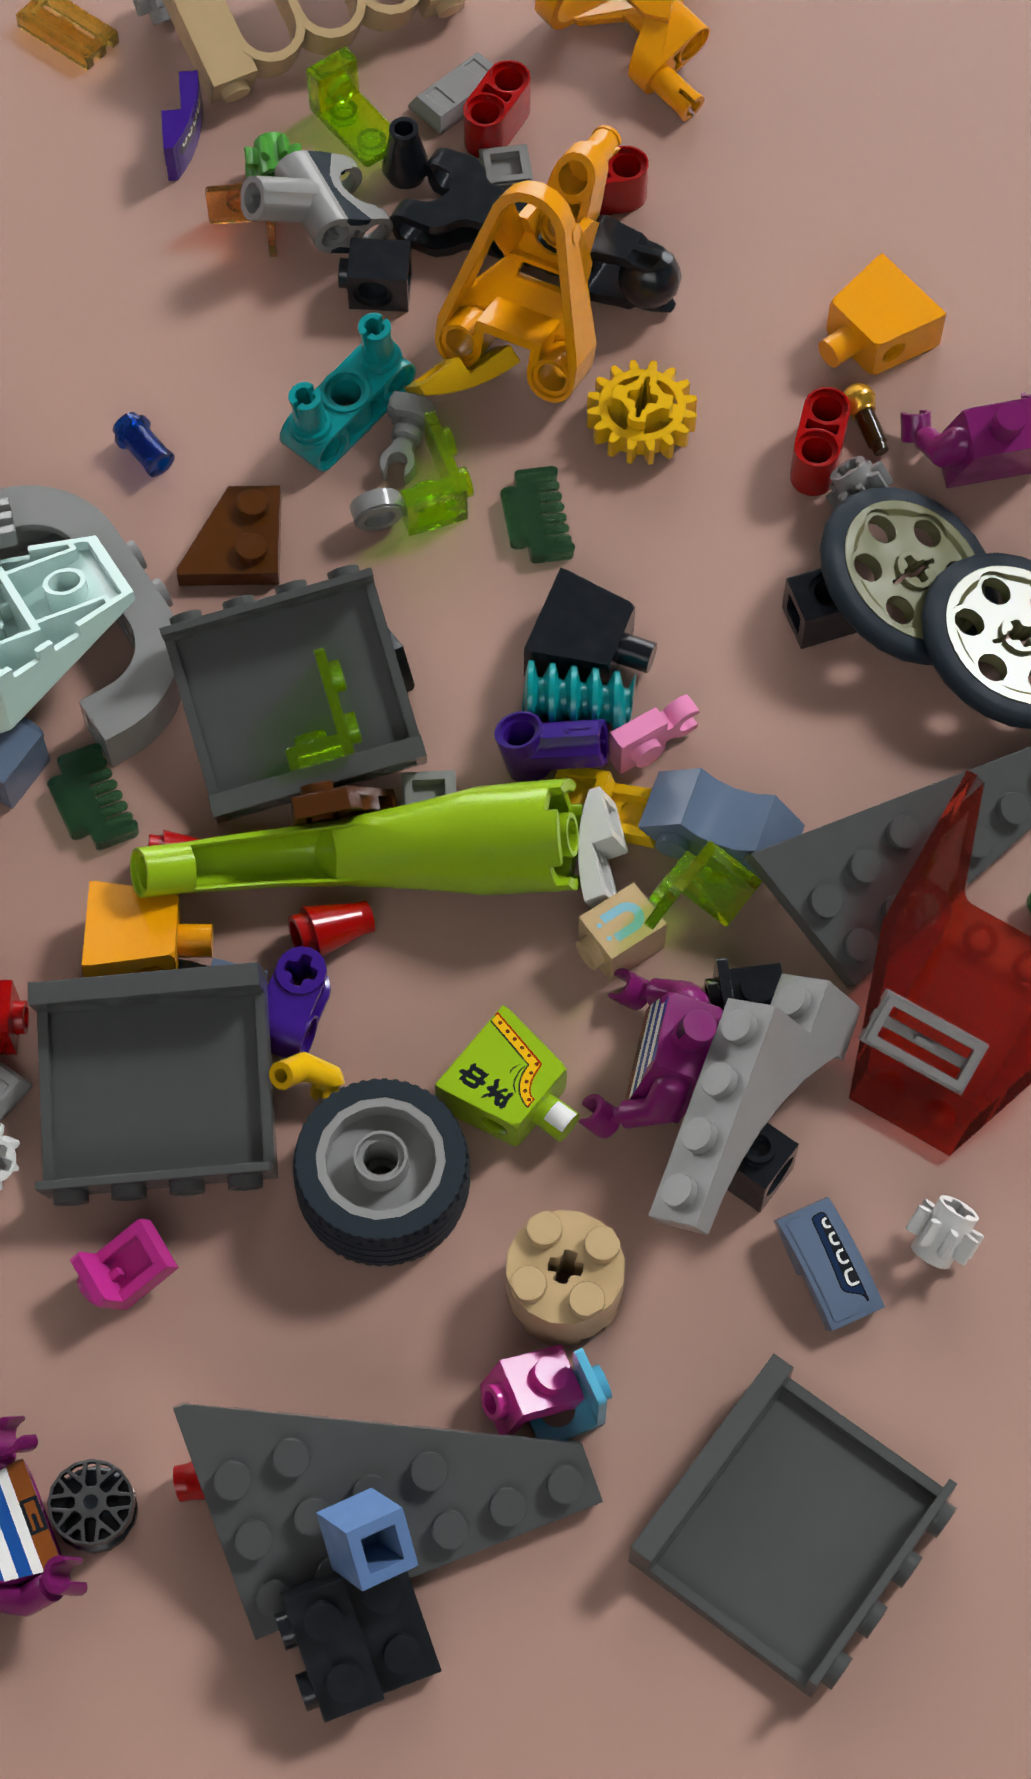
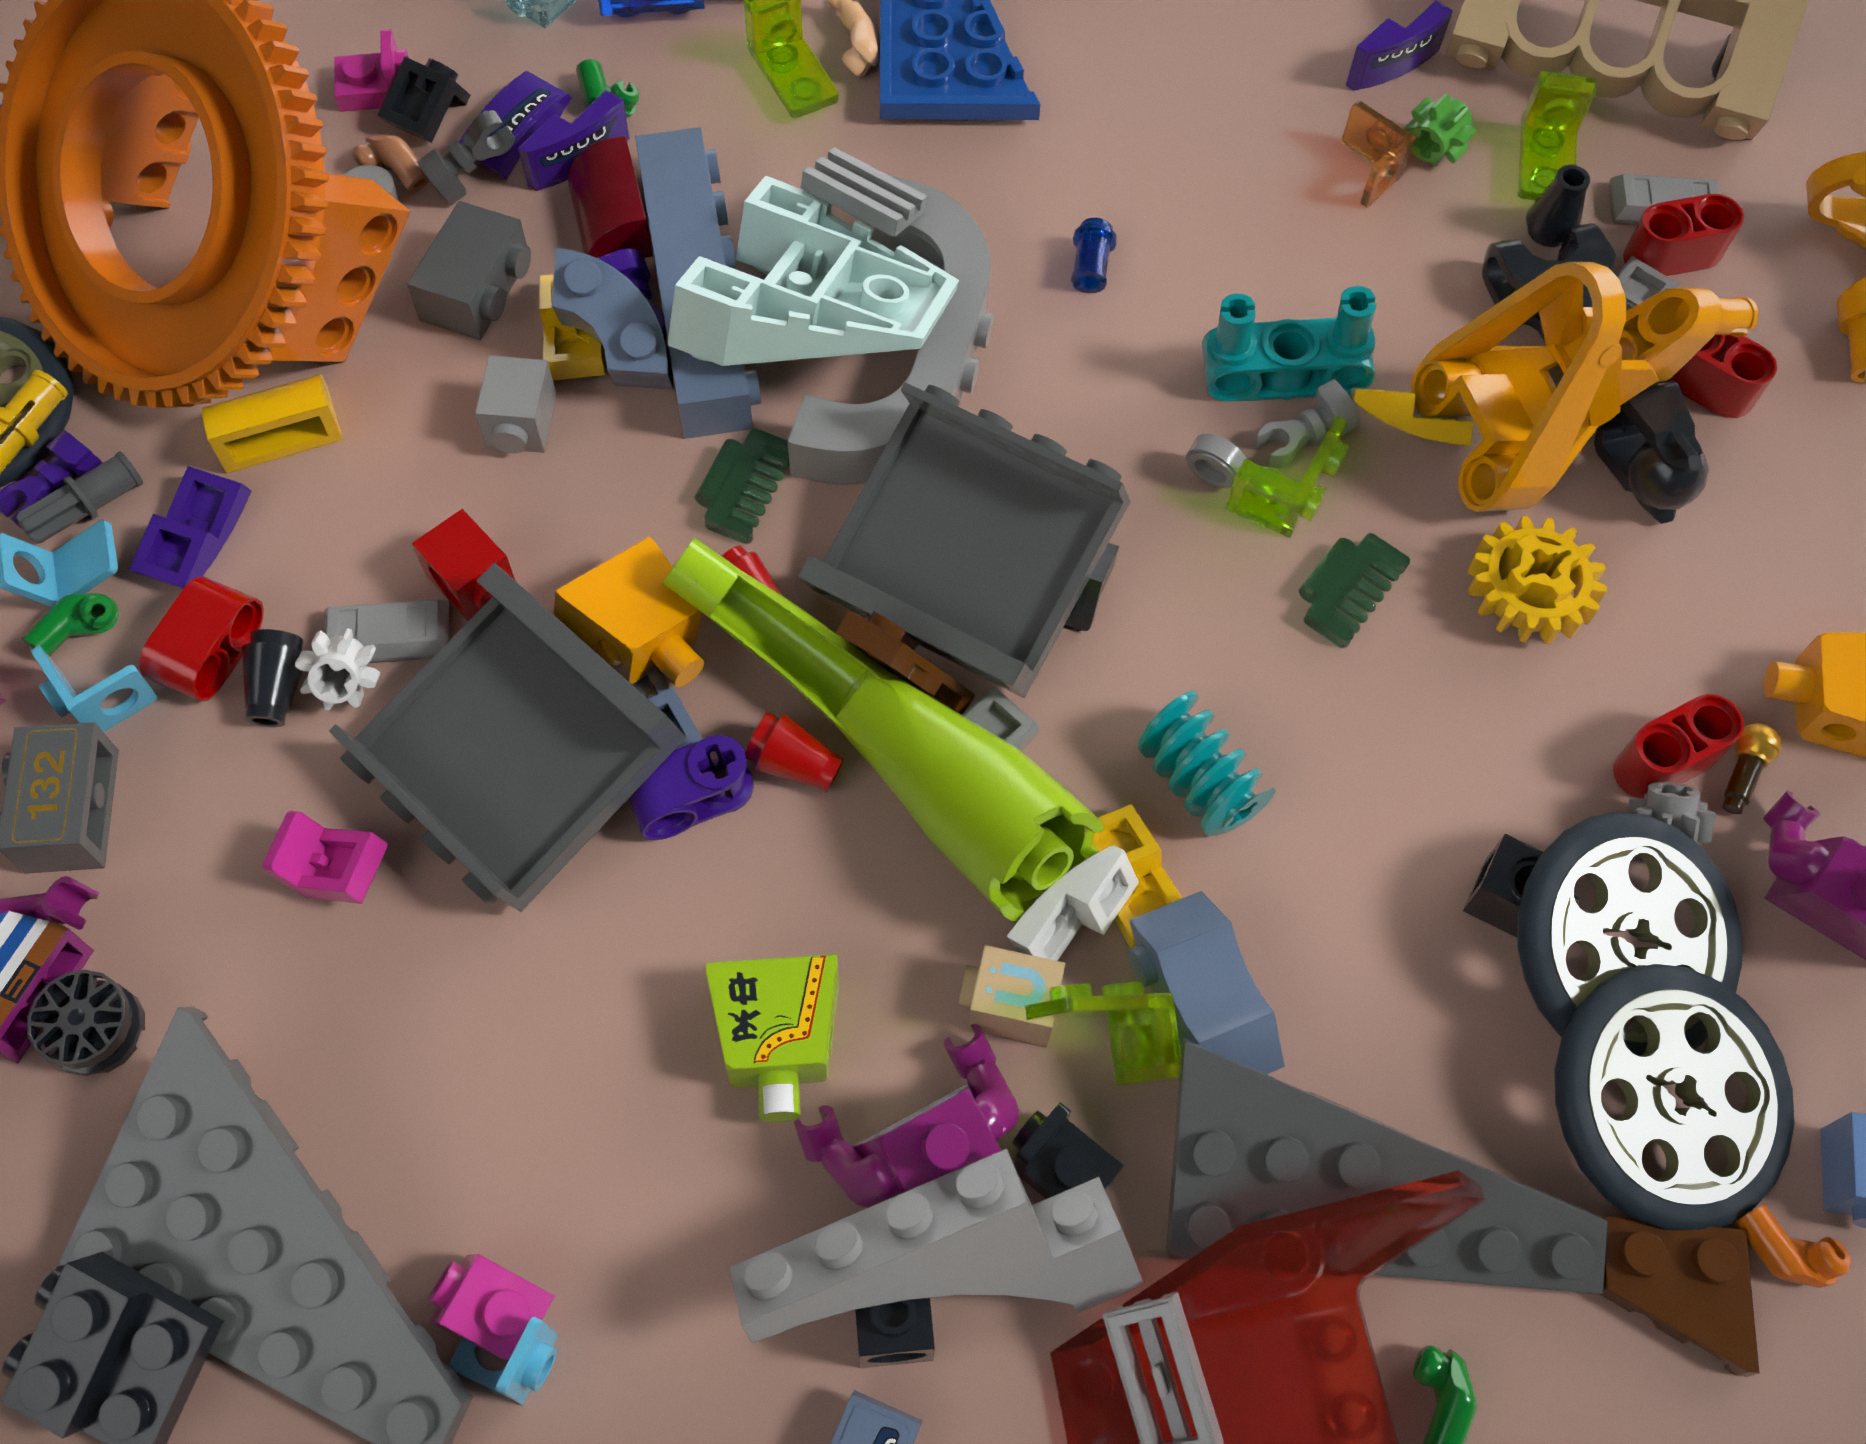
camera: 45 degrees right, 0 degrees up
(237, 541) = (1082, 391): reddish brown wing -> none
(307, 1068) = (635, 843): yellow arm -> none
(311, 193) = (1438, 182): light grey connector -> none
(315, 746) = (976, 597): clear neon green bracket -> none
(367, 1539) = (176, 1288): medium blue brick -> none
(371, 1131) = (576, 943): wheel -> none
(377, 274) = (1430, 282): black brick -> none
(536, 748) = (1125, 774): dark purple piece -> none
(572, 1245) = (591, 1212): tan brick -> none
(587, 630) = (1275, 714): black torso -> none
(645, 737) = (1230, 852): bright pink plate -> none

